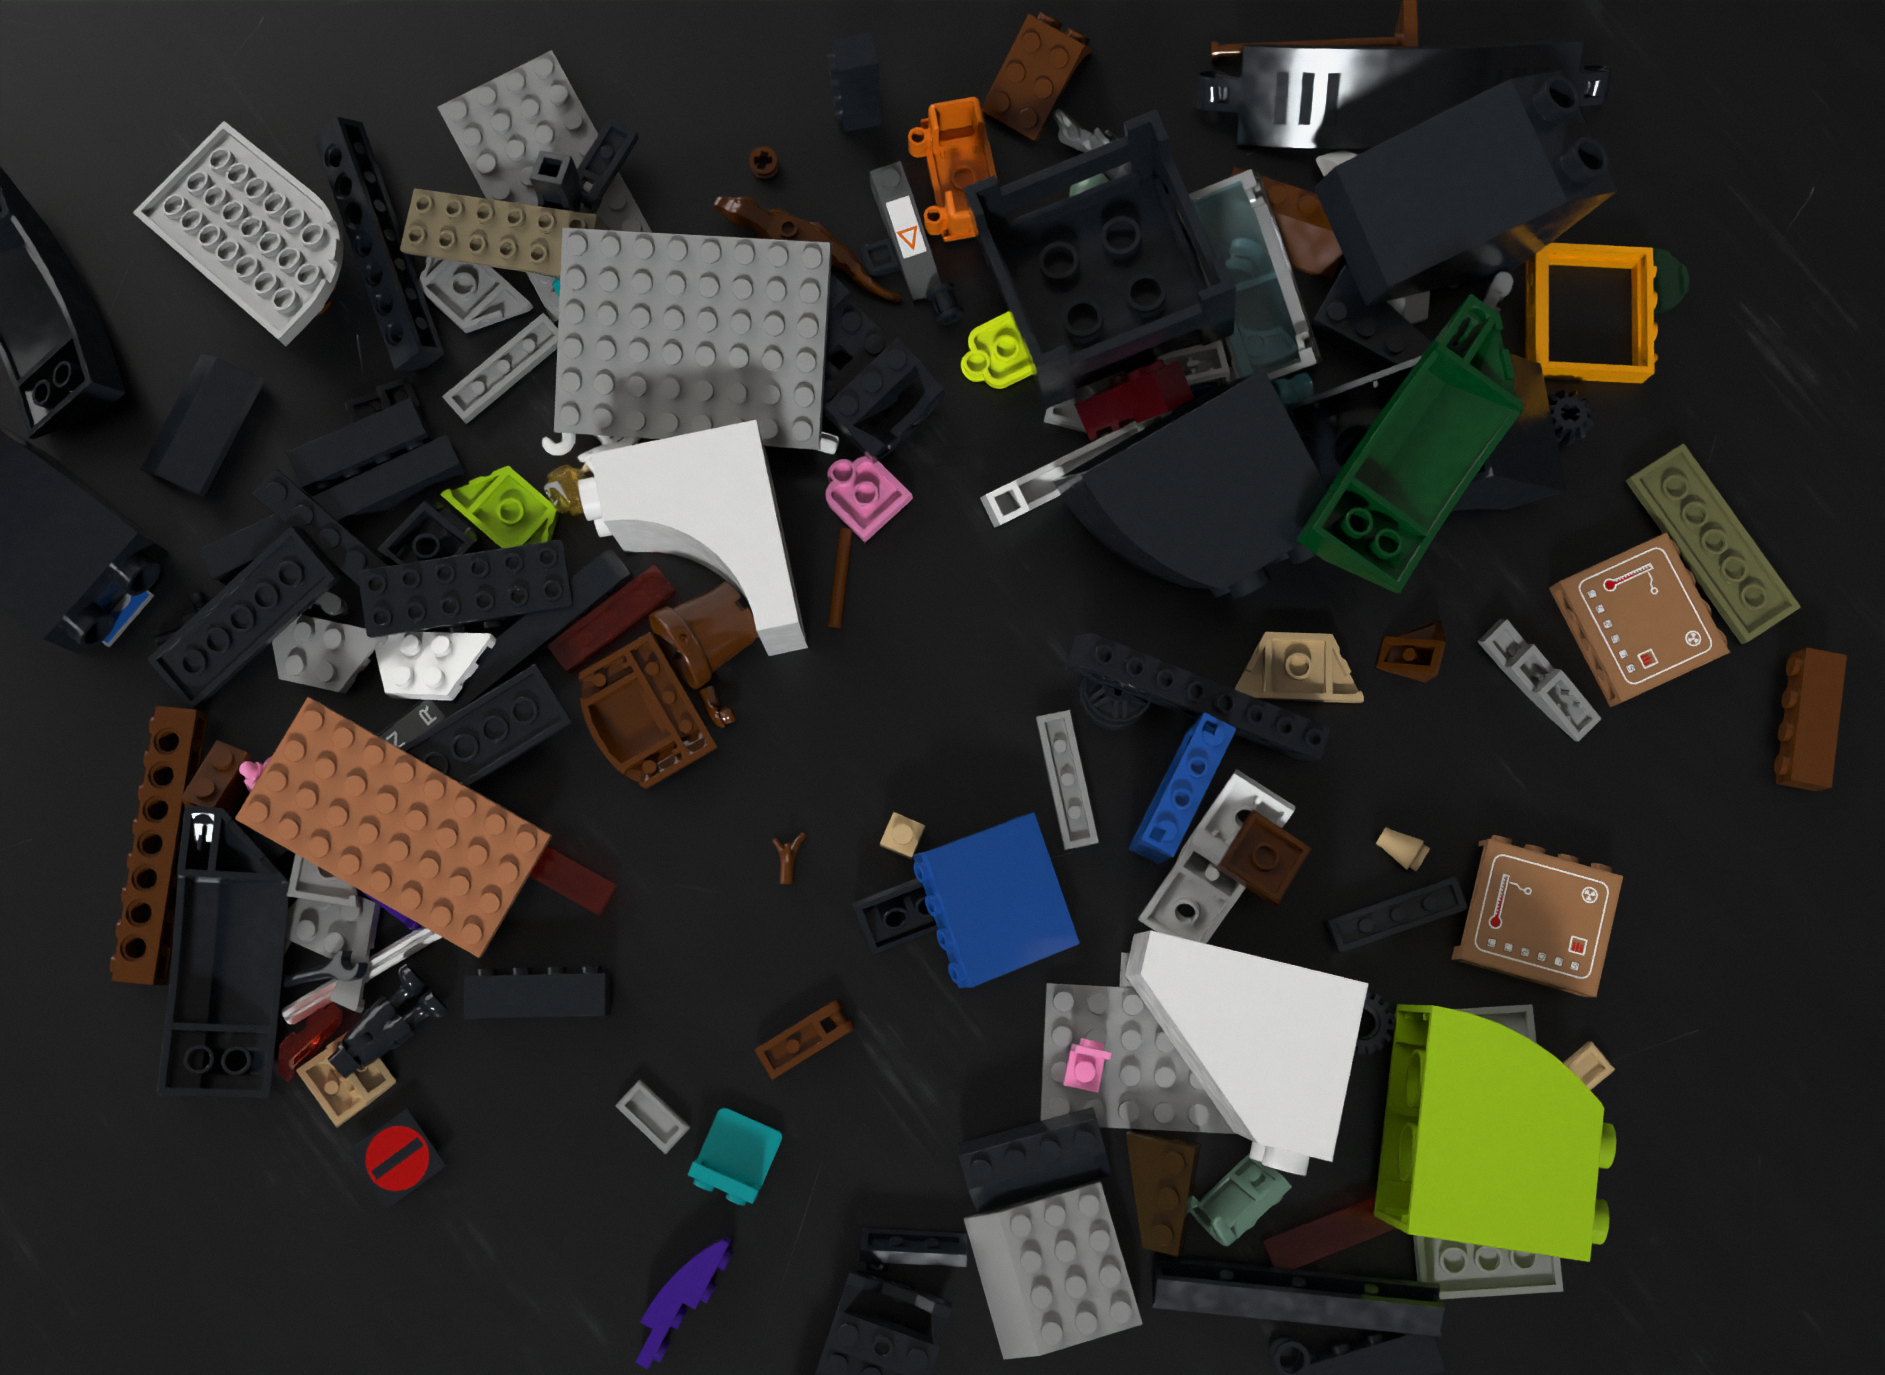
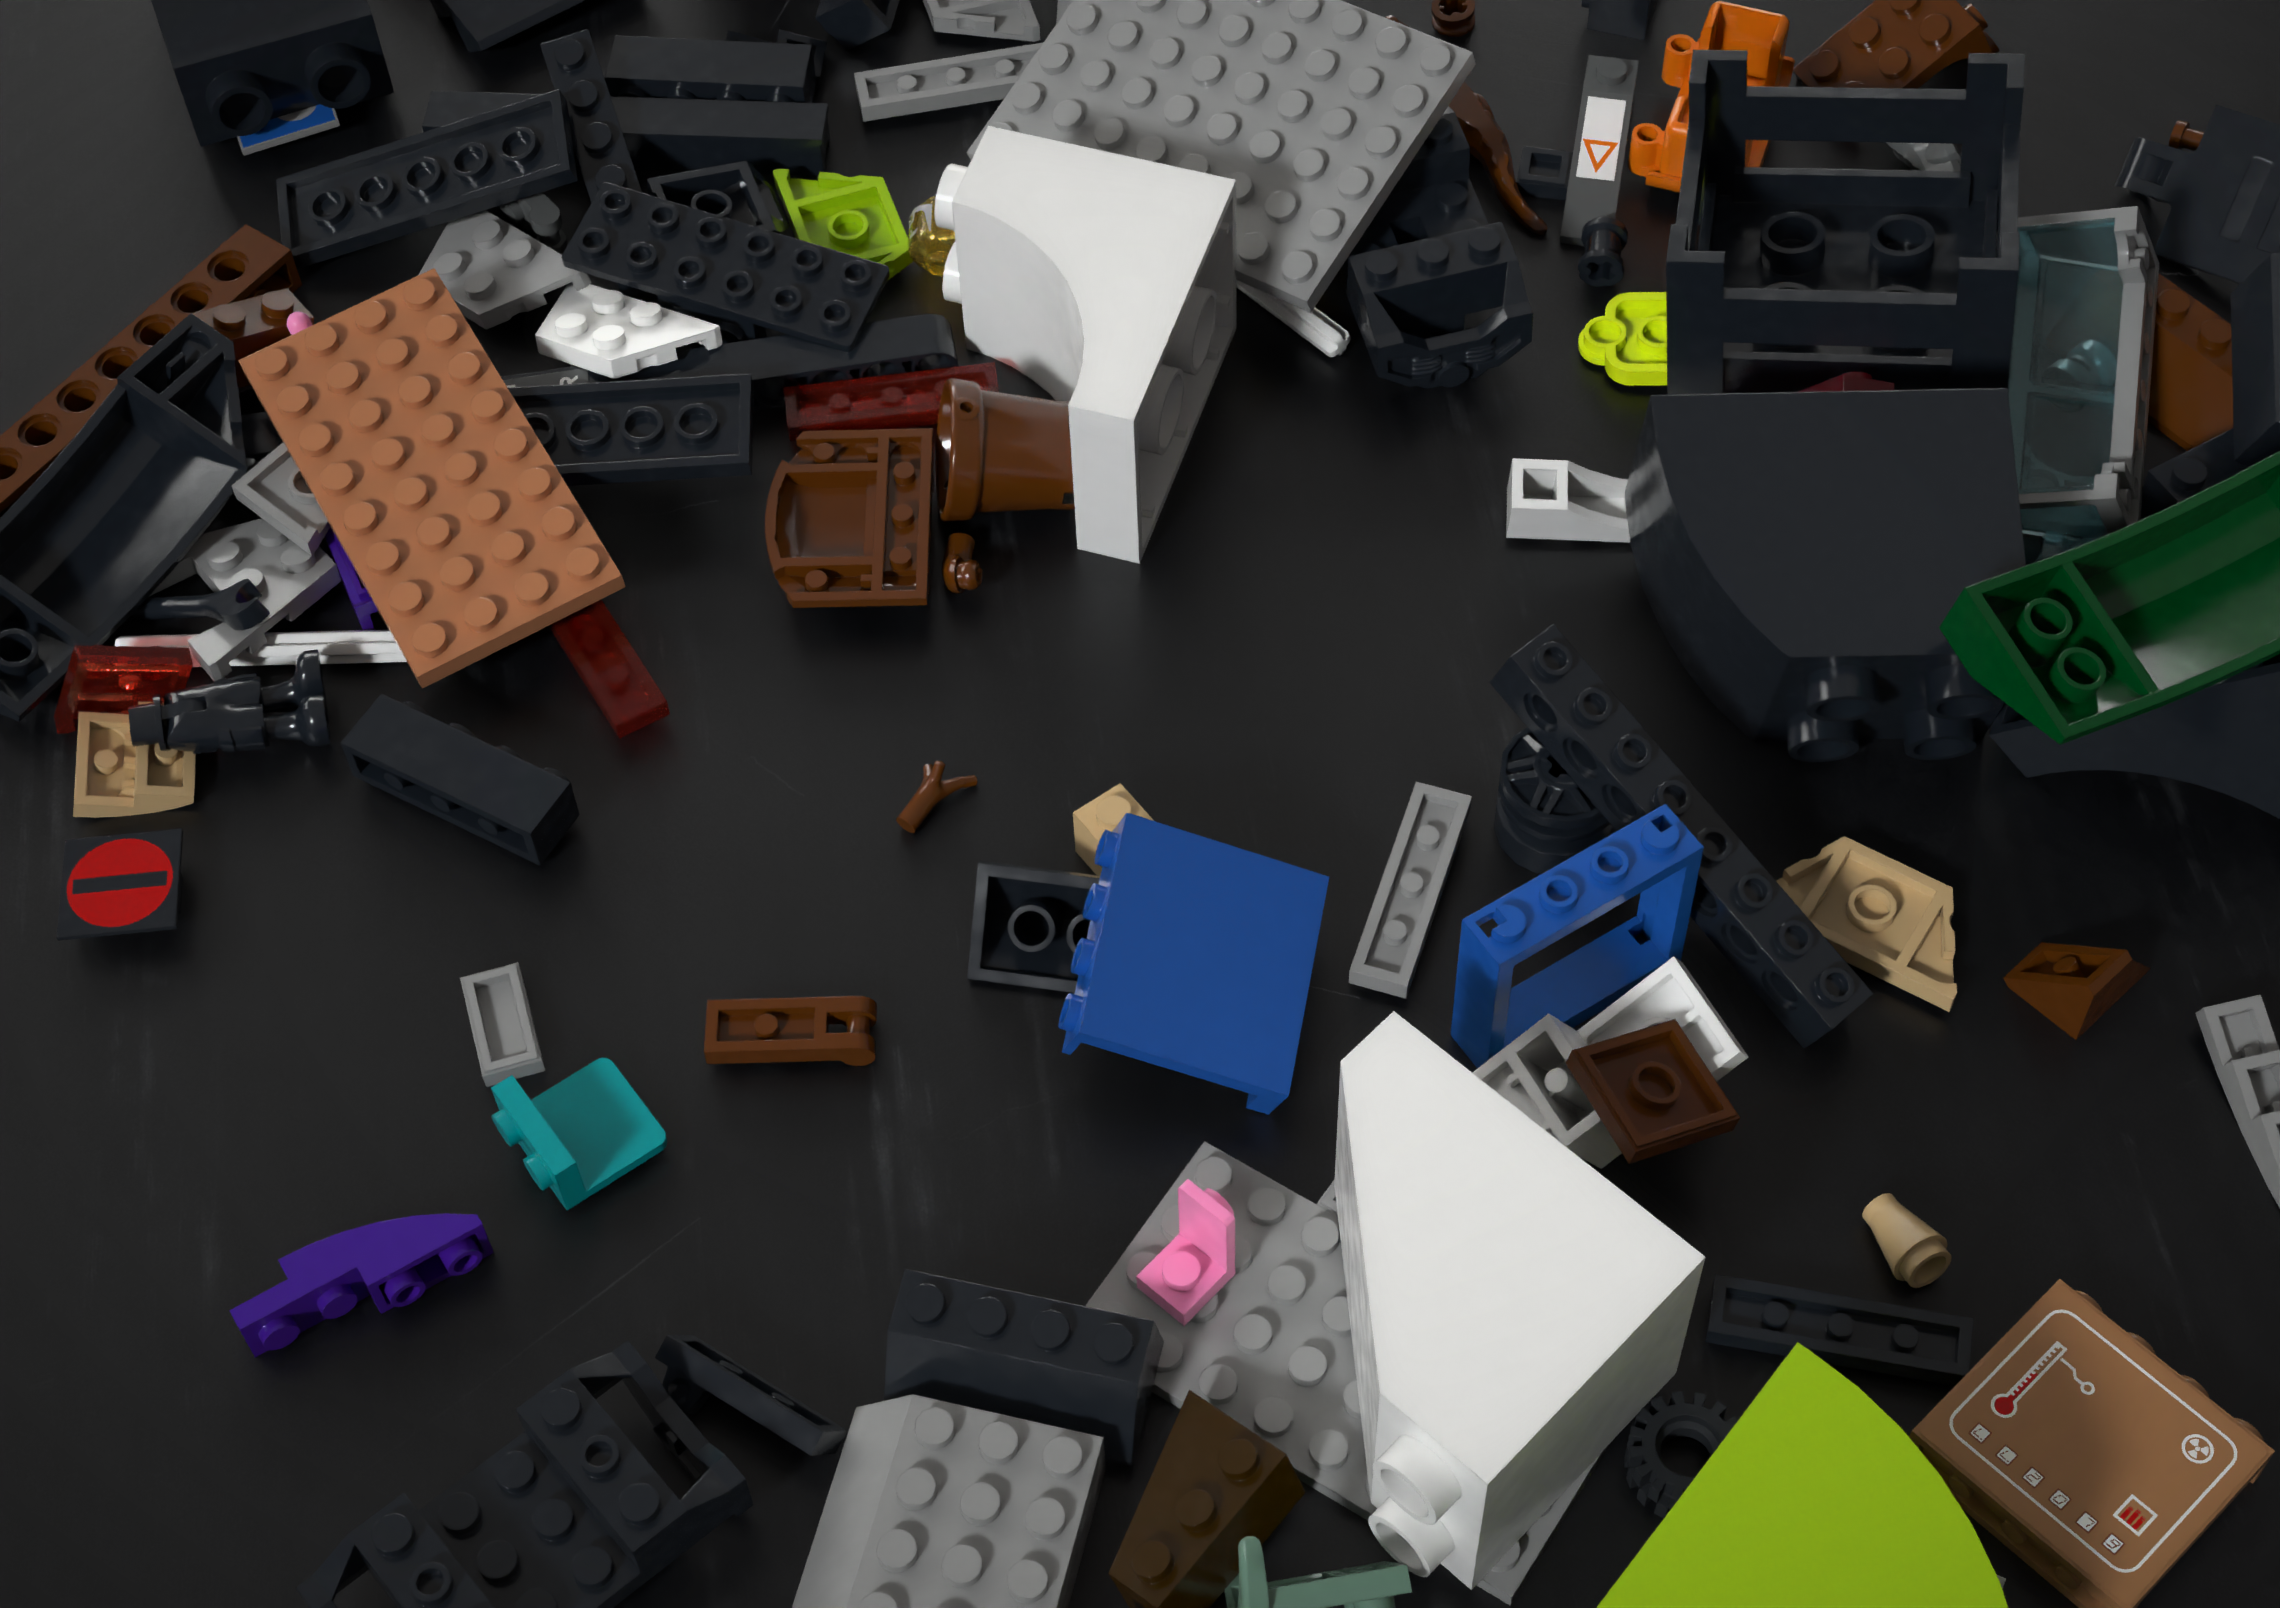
camera: 35 degrees right, 25 degrees down
(840, 578) = (1241, 499): reddish brown bar -> none
(864, 495) = (1343, 416): bright pink plate -> none

